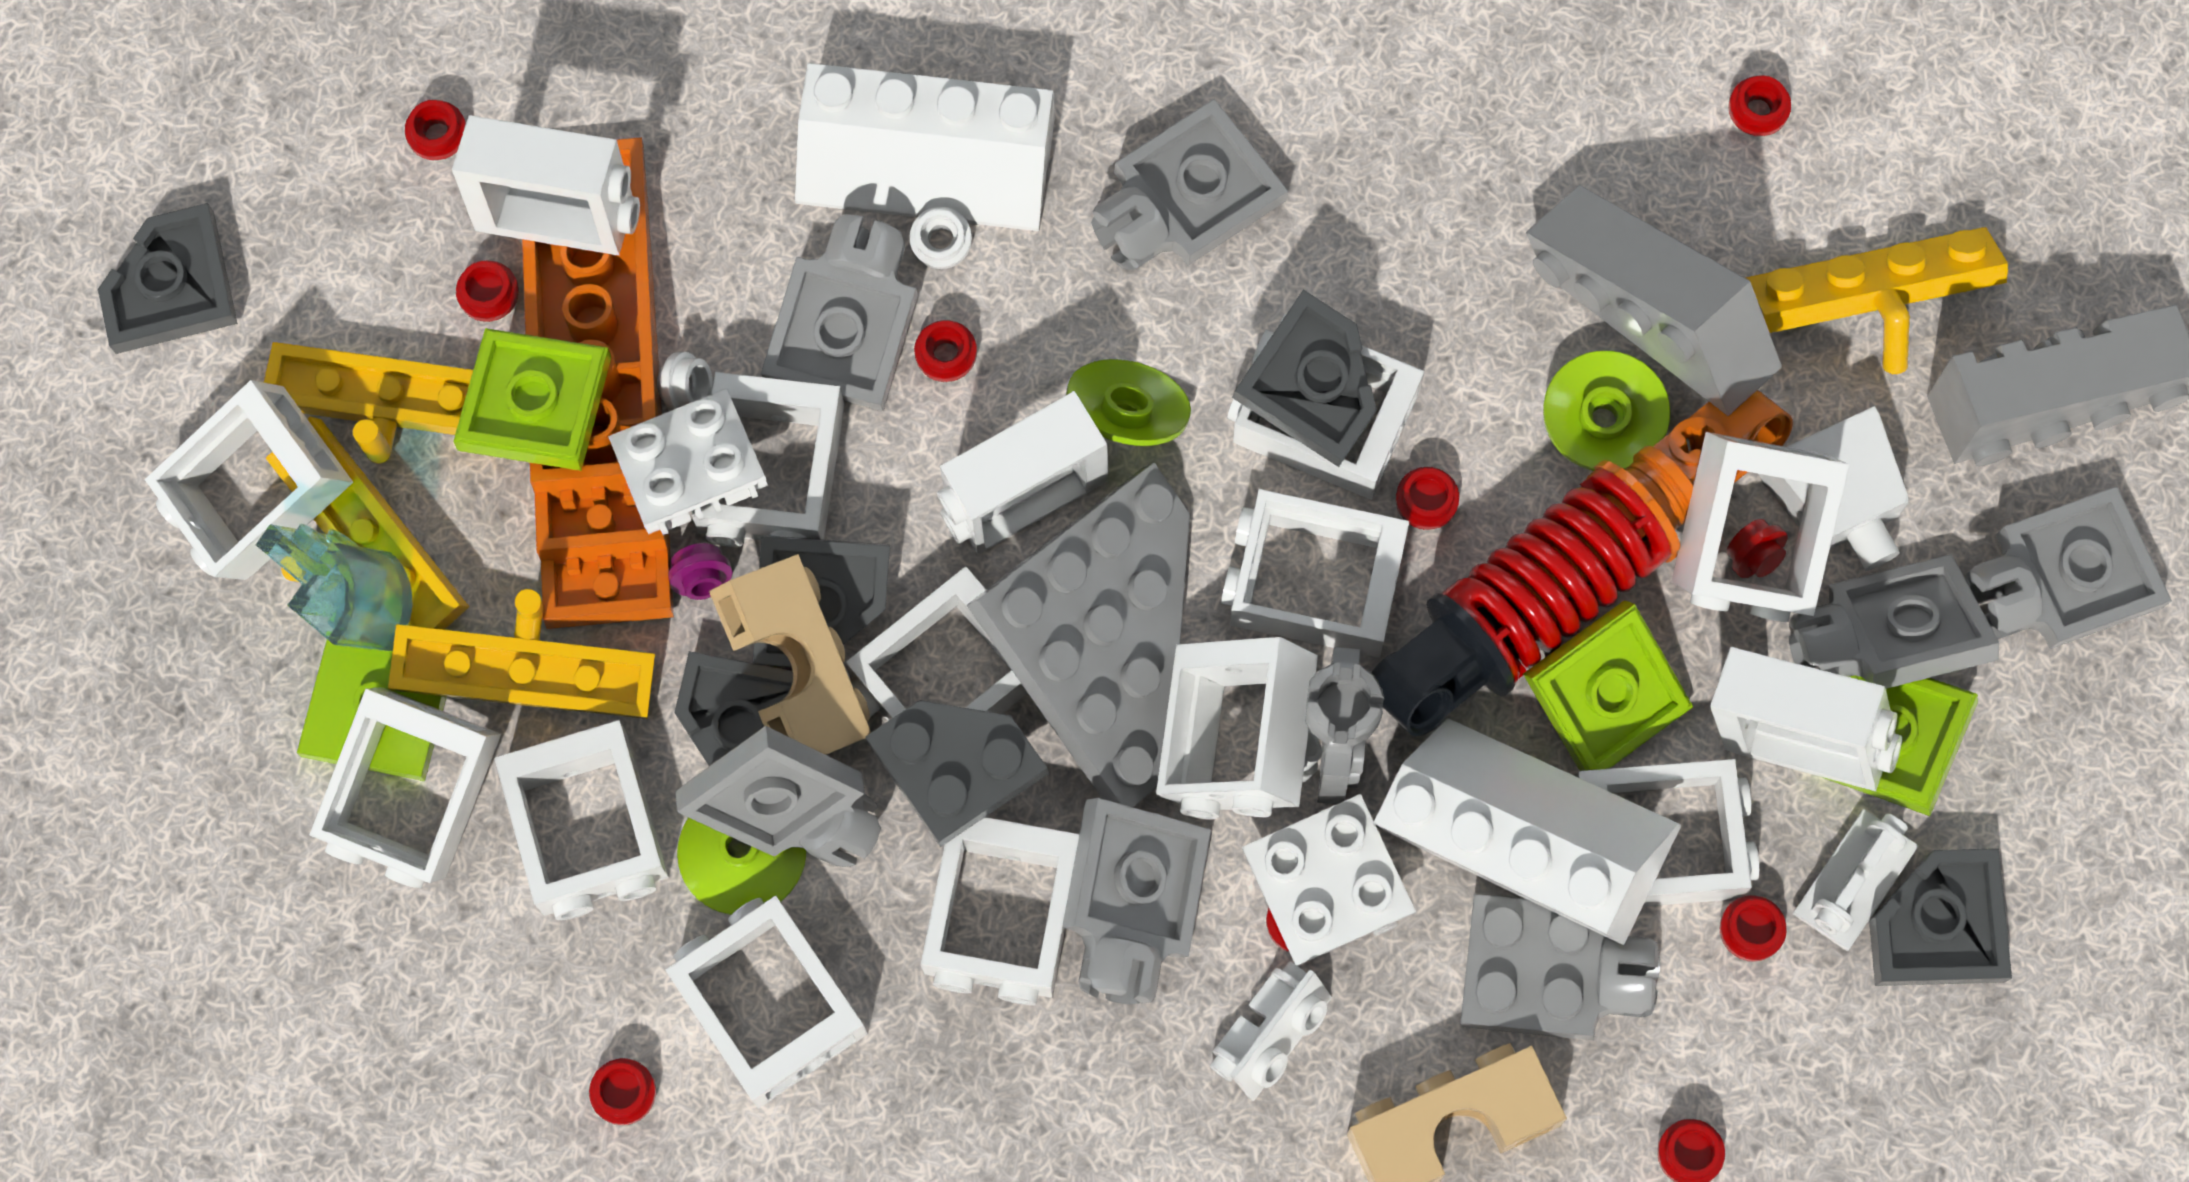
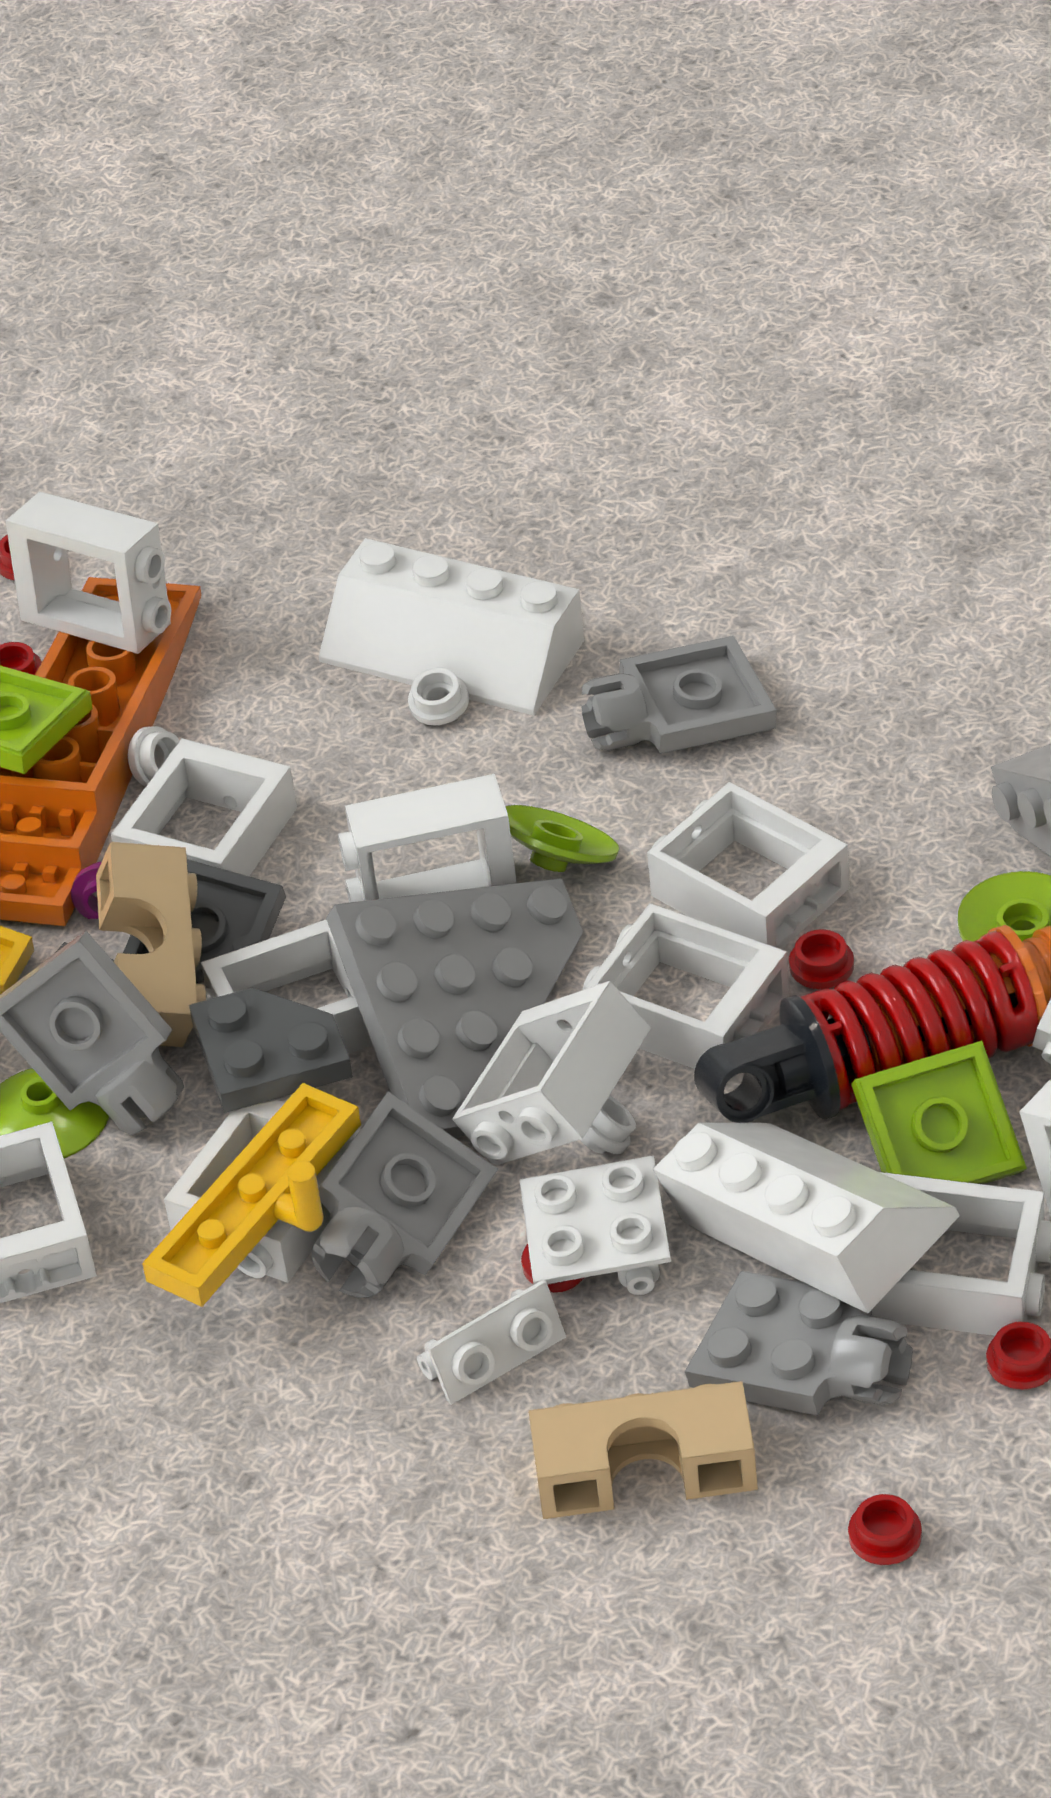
camera: 20 degrees right, 30 degrees down
(688, 462) = (94, 777): white hinge -> none
(845, 315) = (330, 728): light grey plate -> none
(941, 333) = (405, 772): red plate -> none
(1018, 955) = (262, 1185): none -> yellow plate
(1312, 380) = (728, 821): dark grey plate -> none
(1343, 713) = (652, 1071): light grey plate -> none

